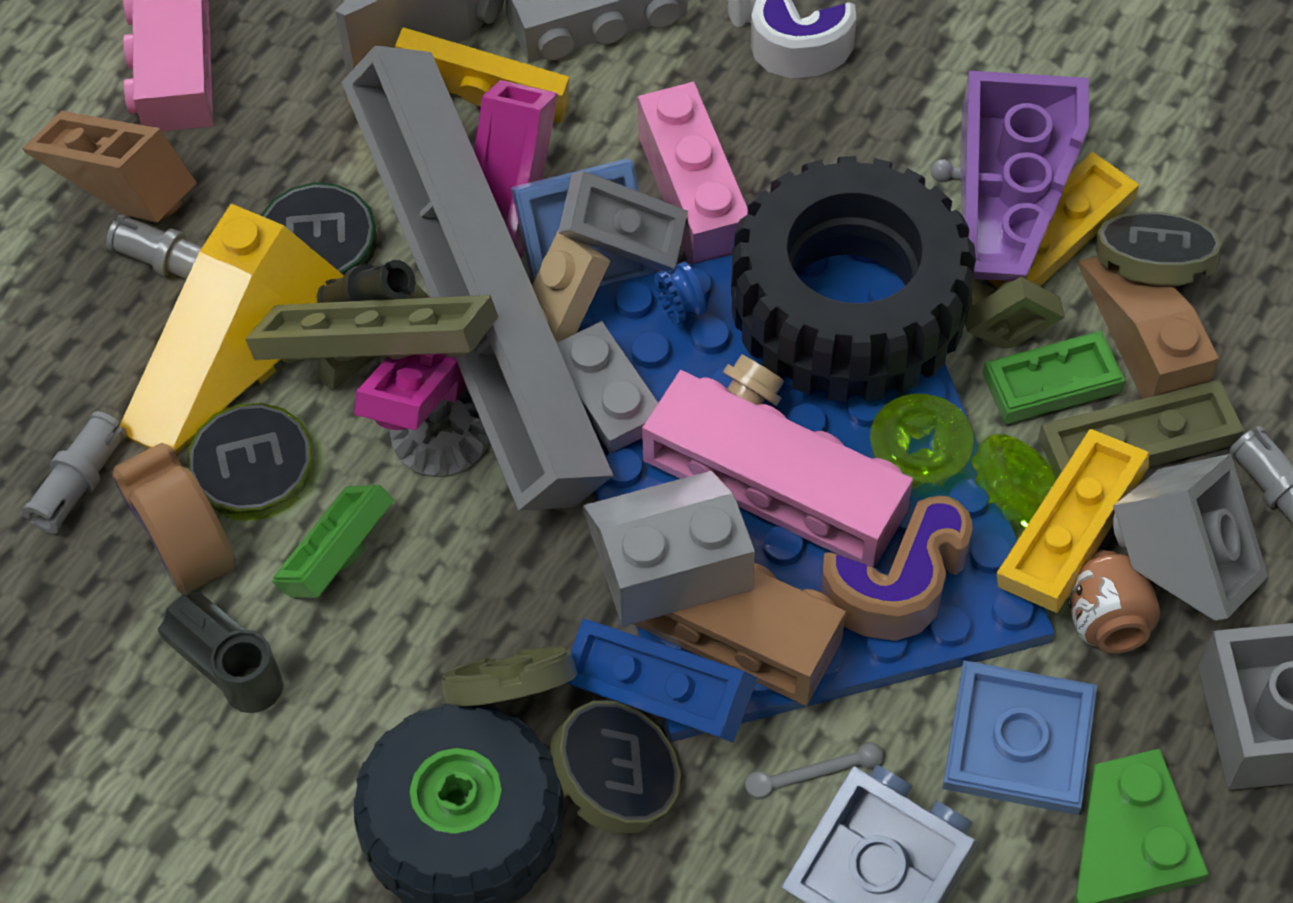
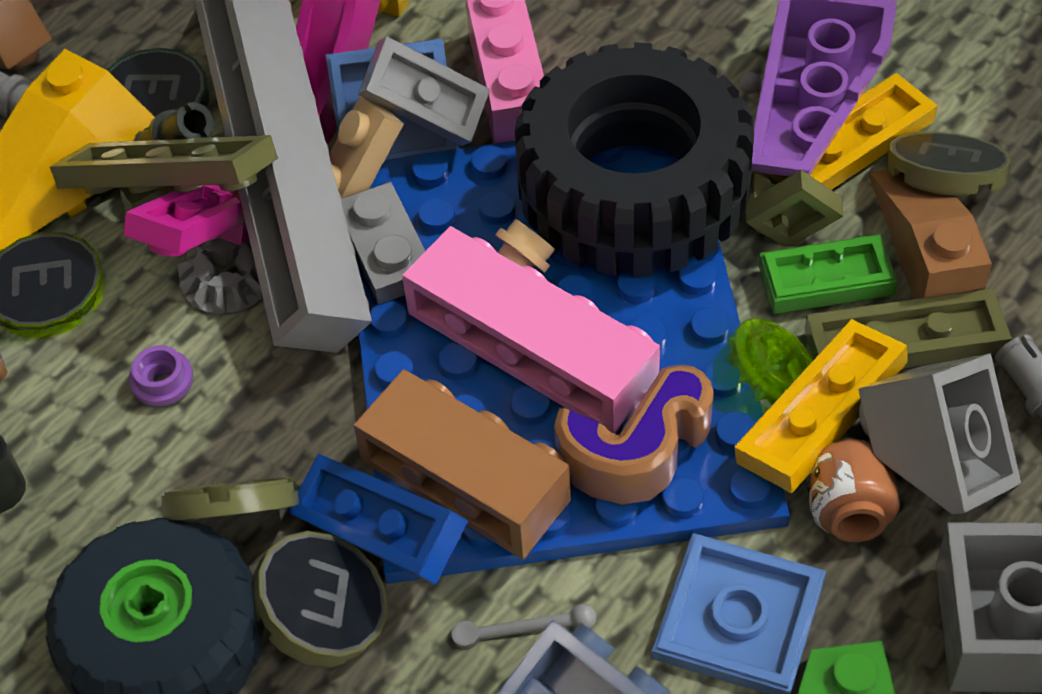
camera: 10 degrees right, 5 degrees down
(333, 541) = (100, 362): bright green plate -> none
(393, 534) = (155, 362): none -> medium lavender plate
(672, 546) = (400, 388): light grey slope -> none
(681, 292) = (471, 162): blue bush -> none
(919, 416) = (681, 295): clear neon green gear -> none

